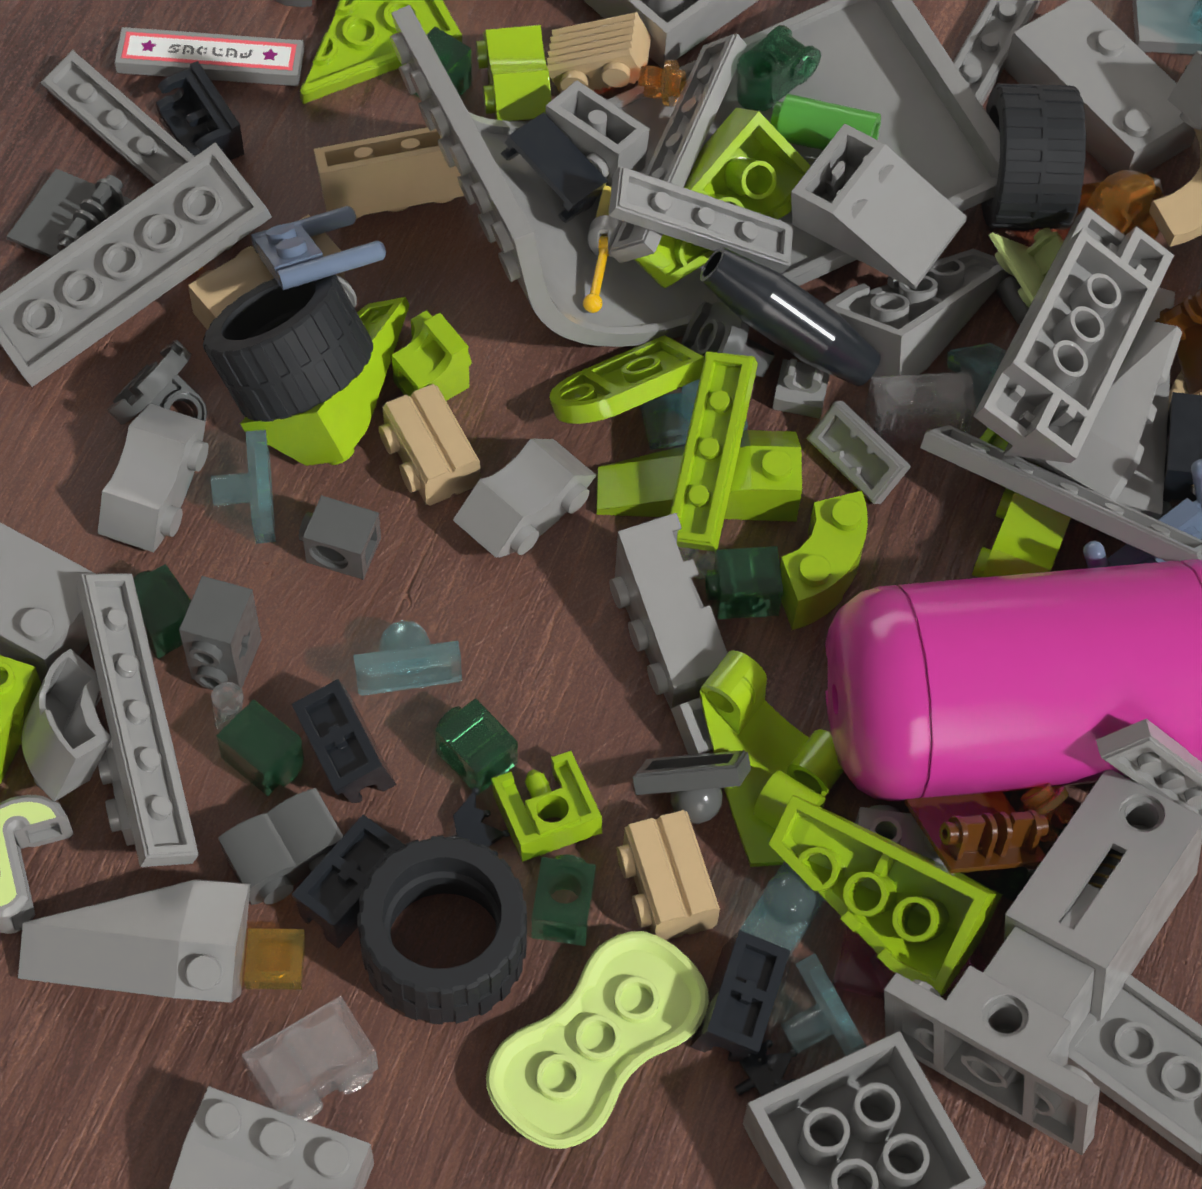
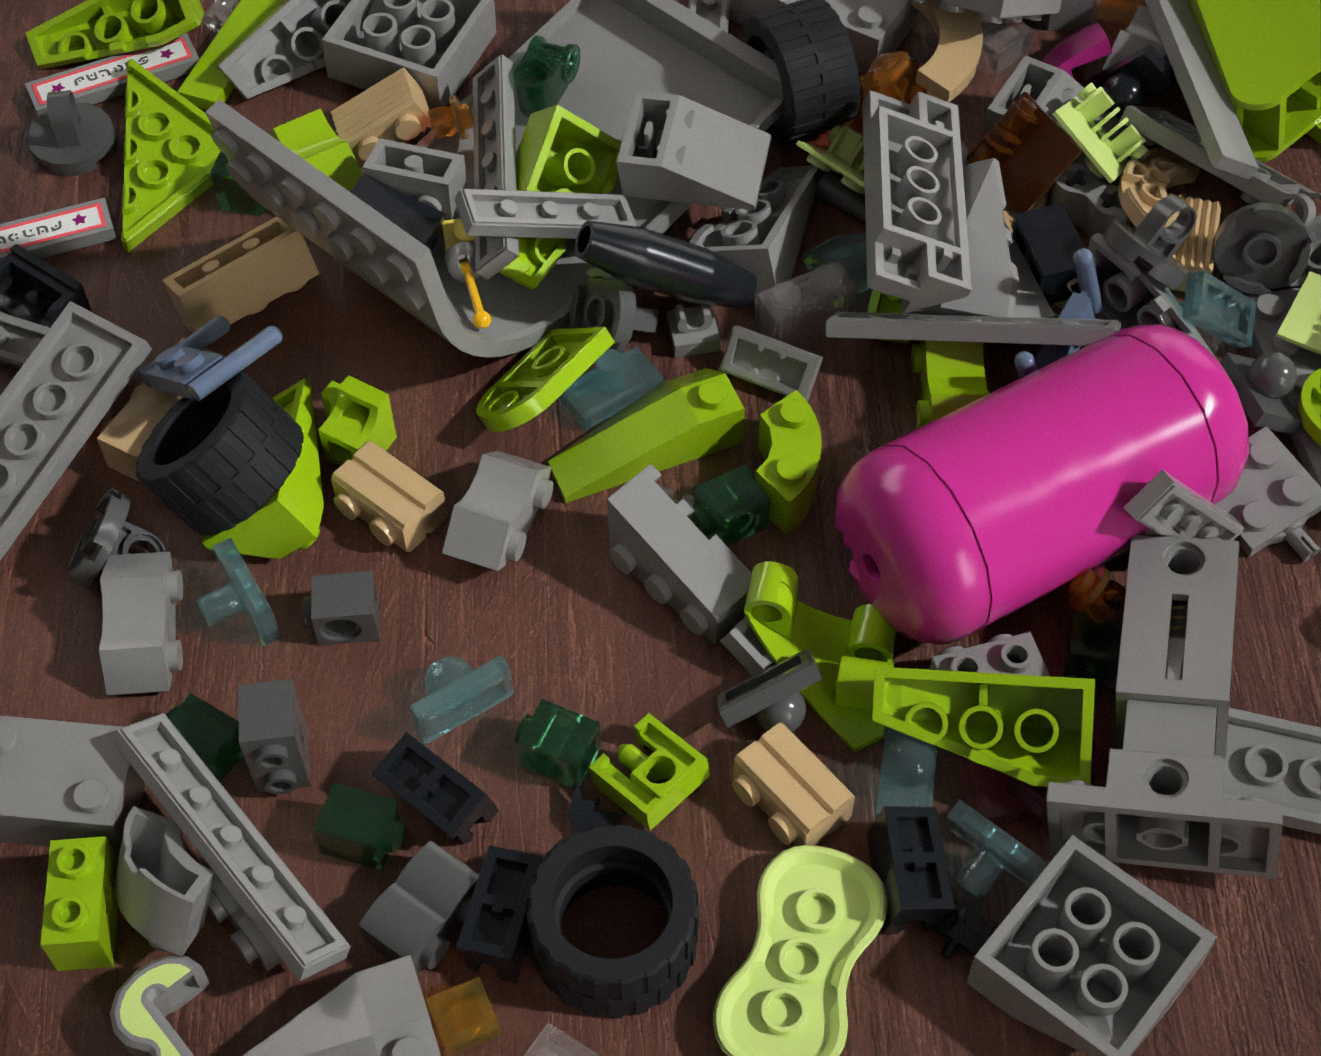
camera: 20 degrees left, 5 degrees down
(227, 703) = (309, 799): clear piece -> none
(557, 920) = (713, 868): clear green brick -> none
(712, 448) = (649, 399): lime tile -> none
(816, 122) = (607, 103): bright green brick -> none
(980, 831) = (1052, 634): reddish brown hinge -> none

